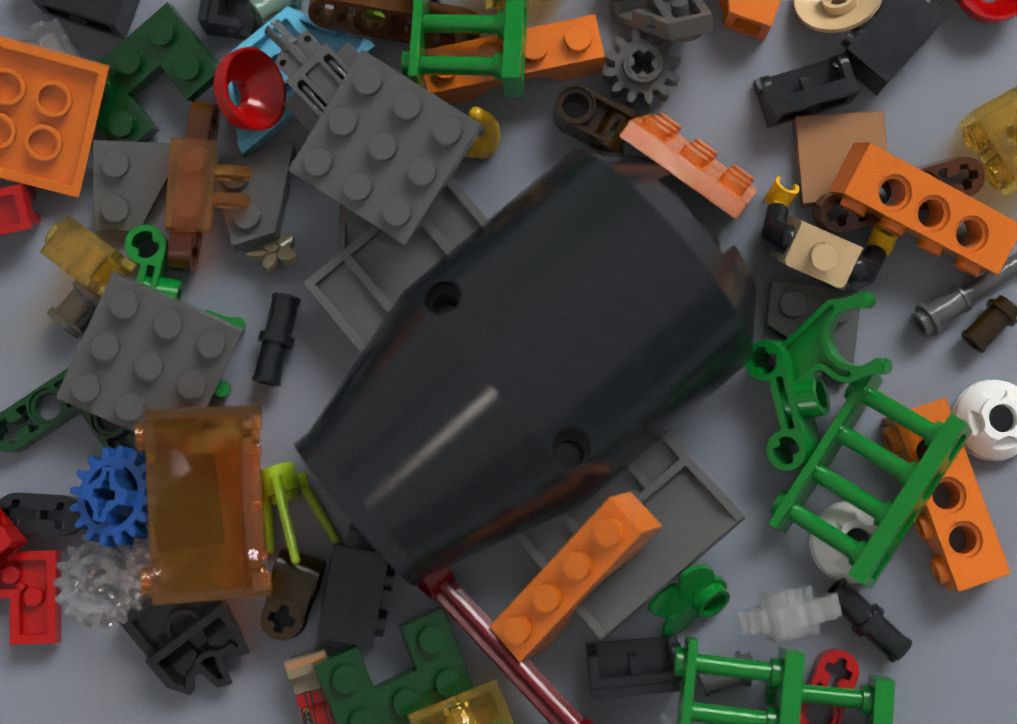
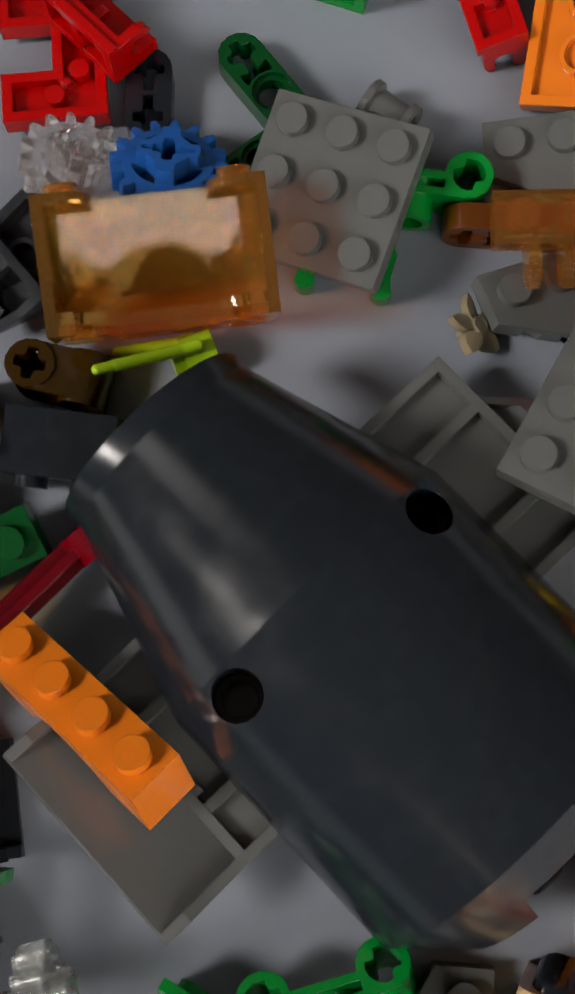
camera: 85 degrees right, 5 degrees down
(84, 254) = (452, 105): clear yellow brick -> none
(276, 339) = (368, 338): black pin -> none
(695, 594) = (71, 879): green plate -> none

